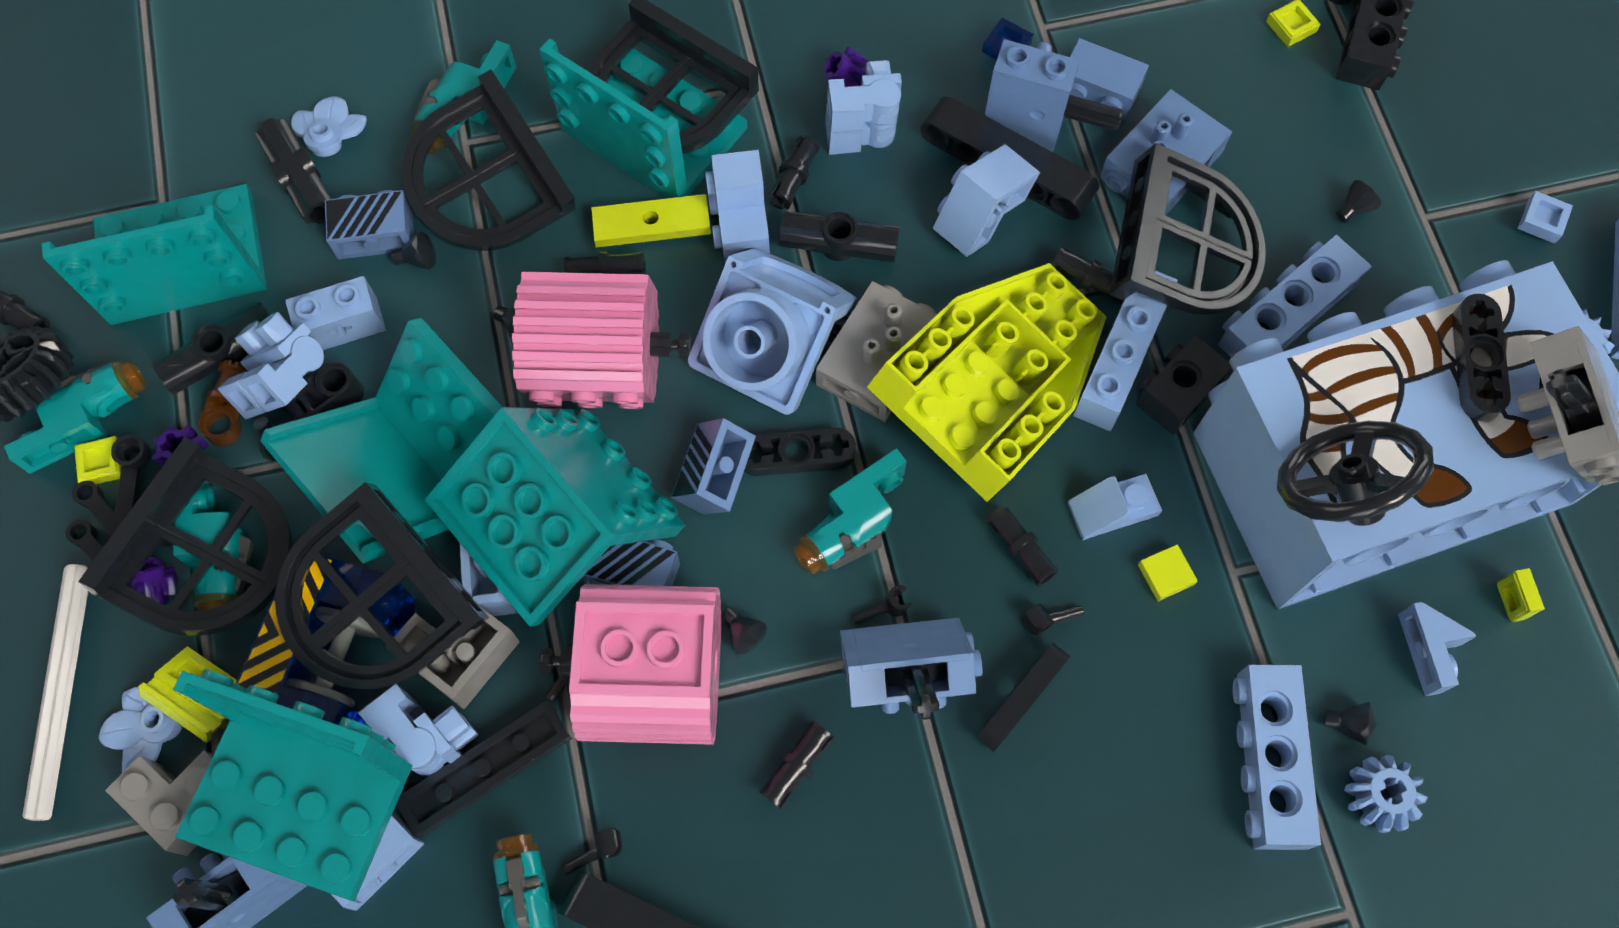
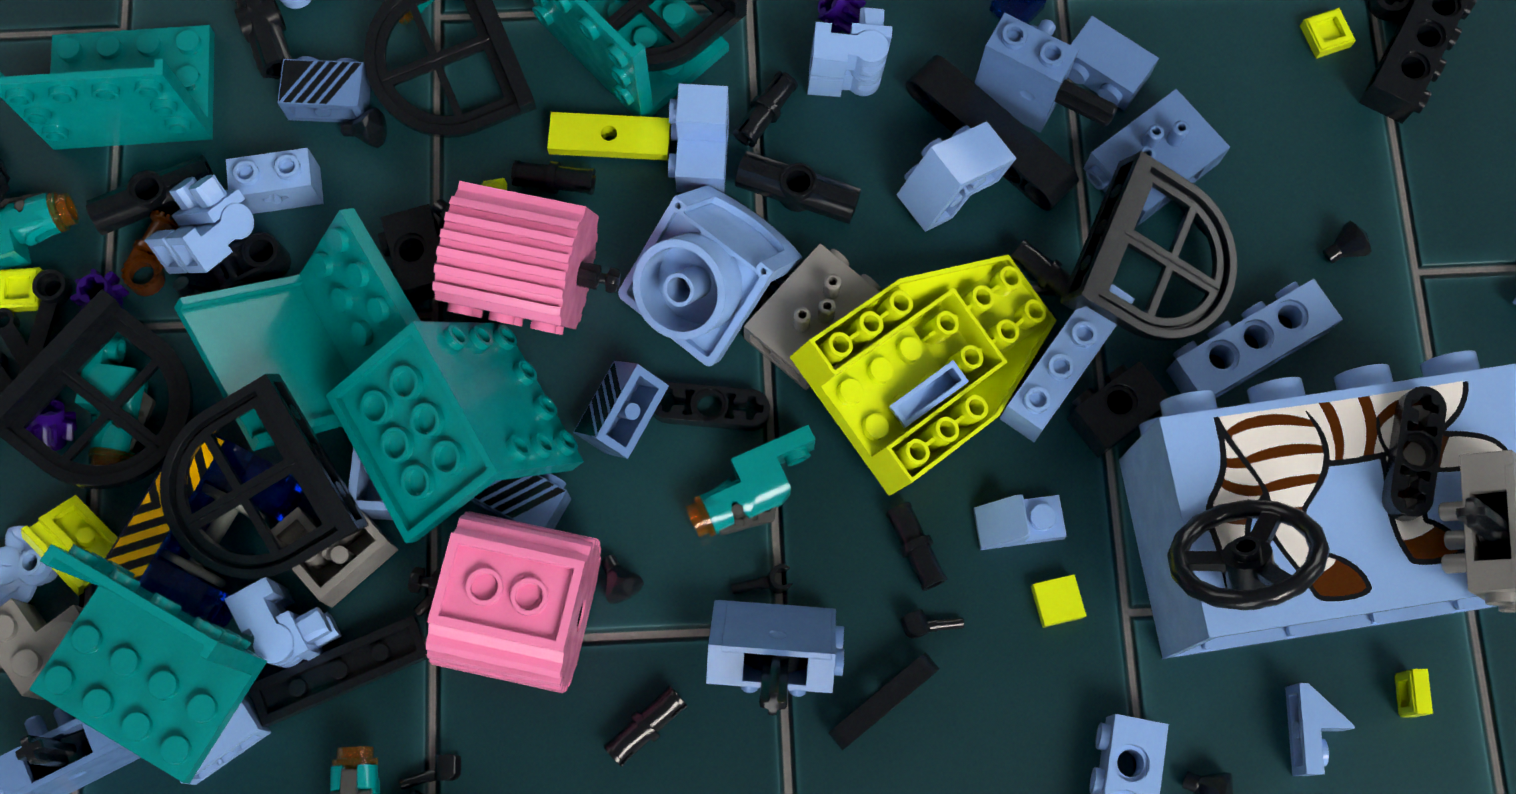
camera: 10 degrees right, 5 degrees up
(483, 338) = (409, 232): none -> black brick
(1005, 398) = (928, 394): none -> light blue piece

